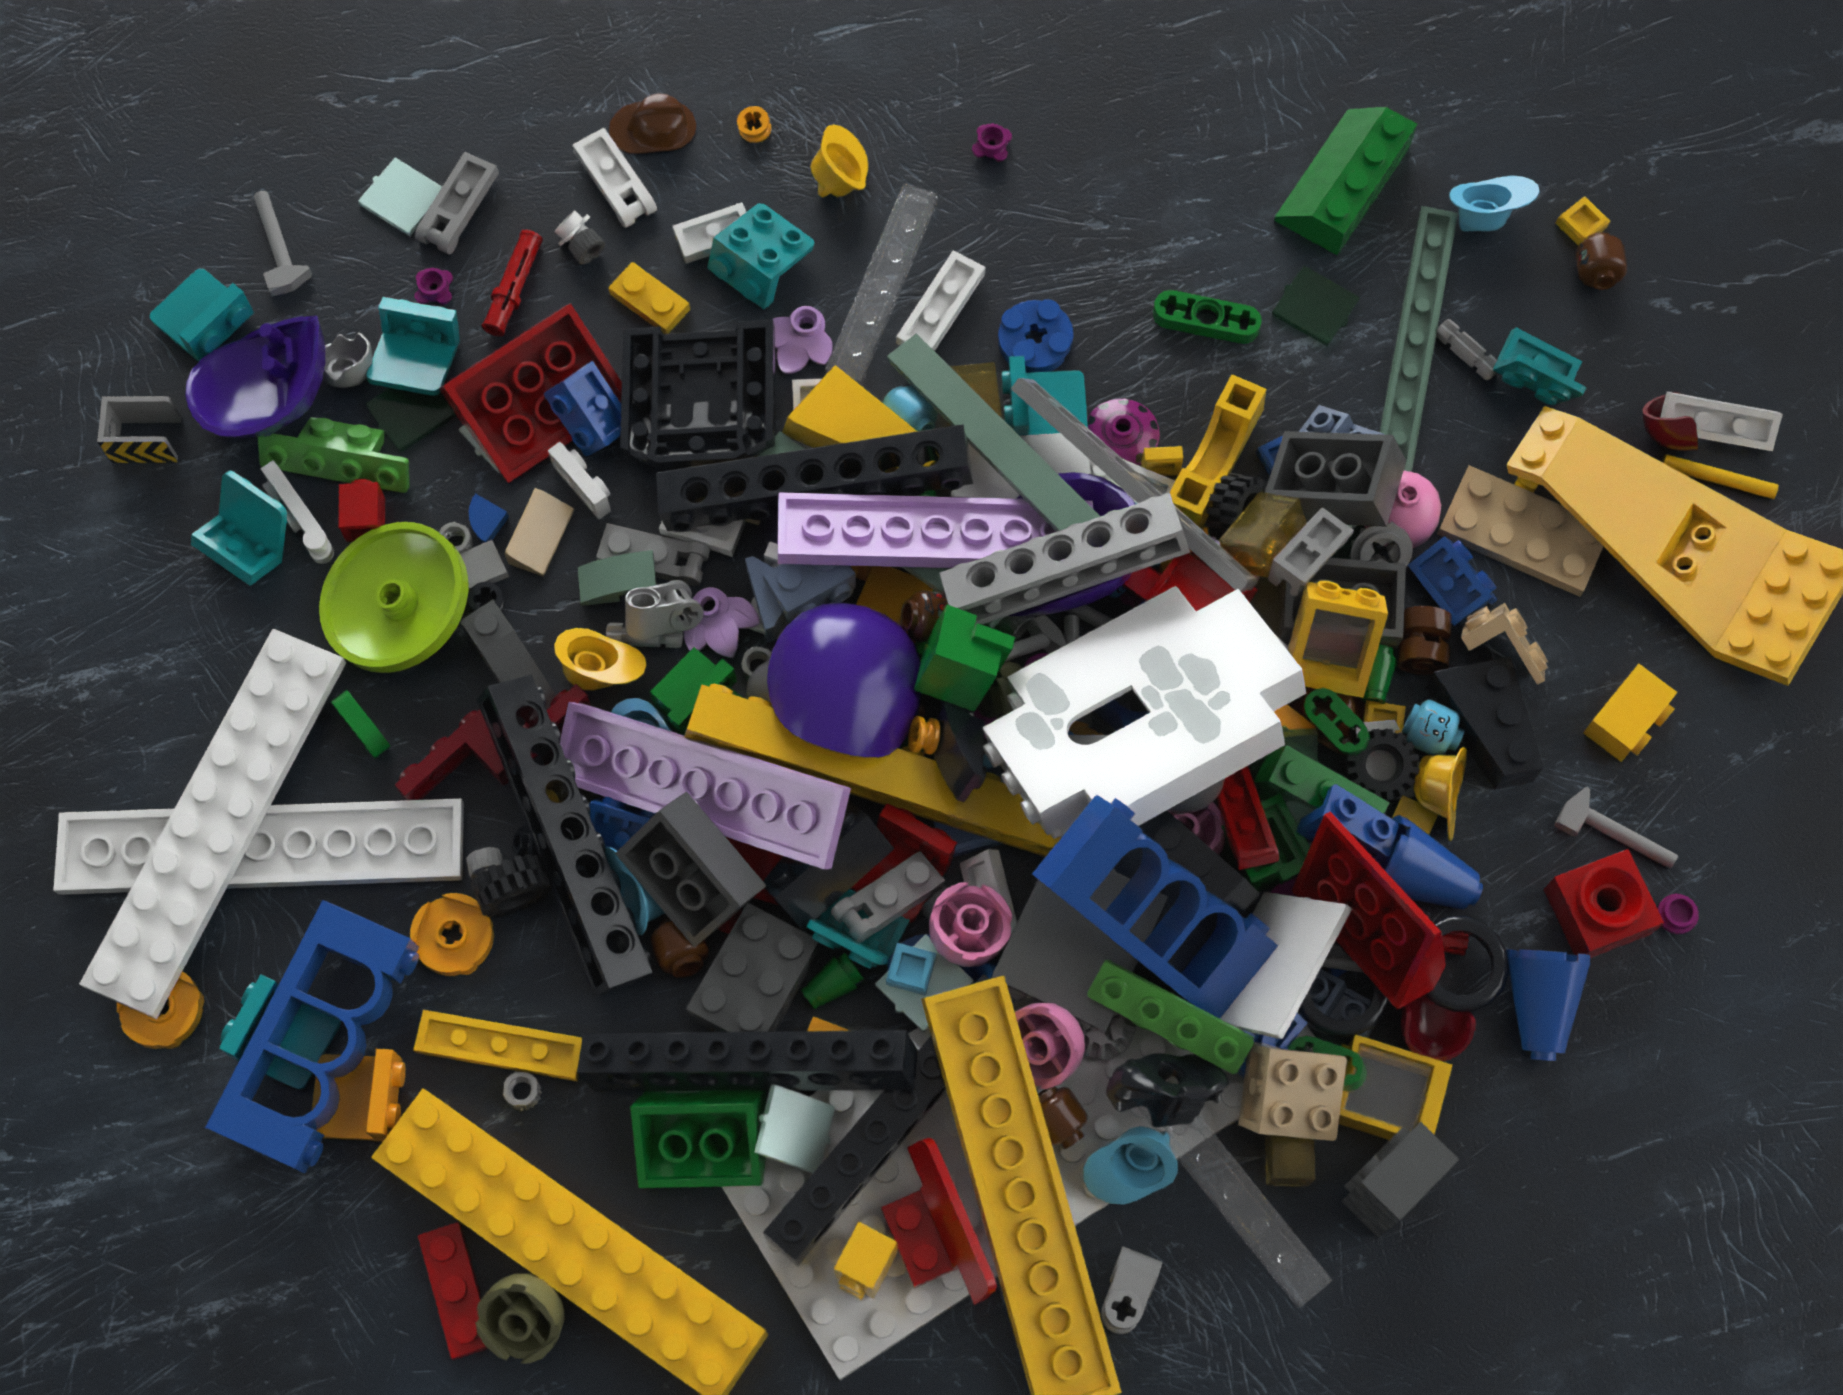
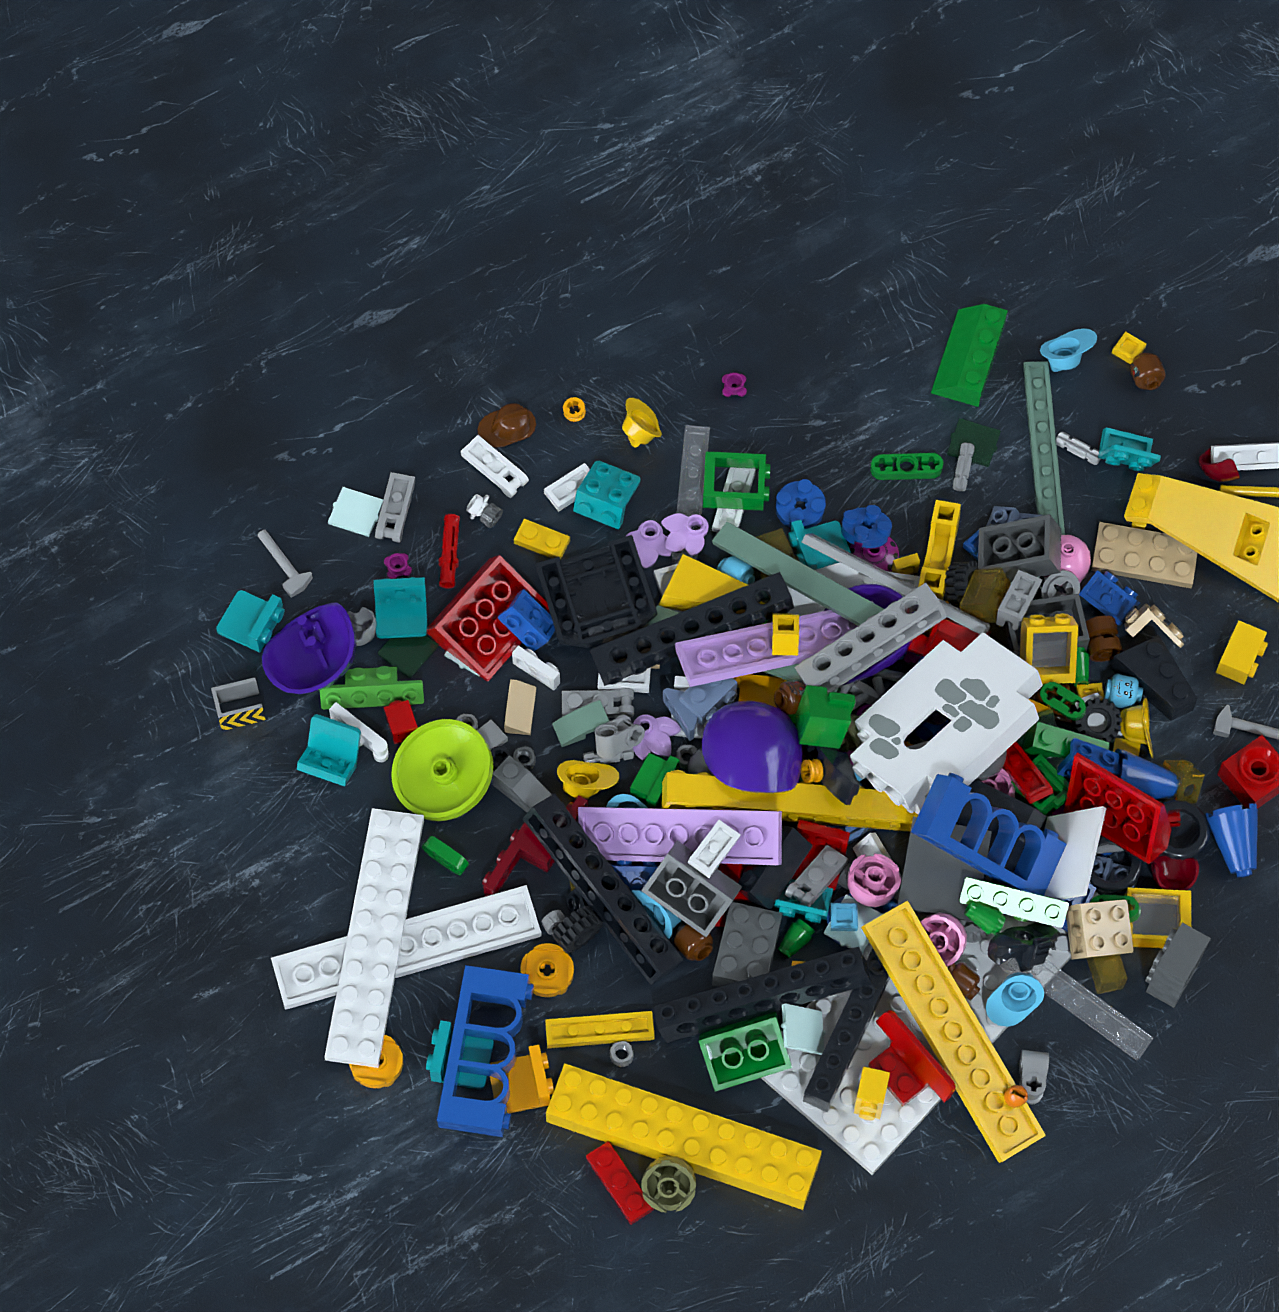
camera: 15 degrees left, 5 degrees down
(486, 518) = (481, 707): blue tile -> none
(524, 621) = (528, 752): none -> dark grey axle
(733, 820) = (714, 848): none -> white plate
(850, 338) = (682, 535): none -> lavender plate
(940, 306) = (735, 500): none -> green window
(940, 518) = (785, 634): none -> yellow slope
(1085, 1329) = (1014, 1100): none -> orange hinge
(1104, 384) = (856, 522): none -> blue plate
(1120, 1032) = (984, 917): none -> green cone
(1289, 337) = (963, 467): none -> light grey axle
(1498, 883) = (1188, 775): none -> clear yellow bracket

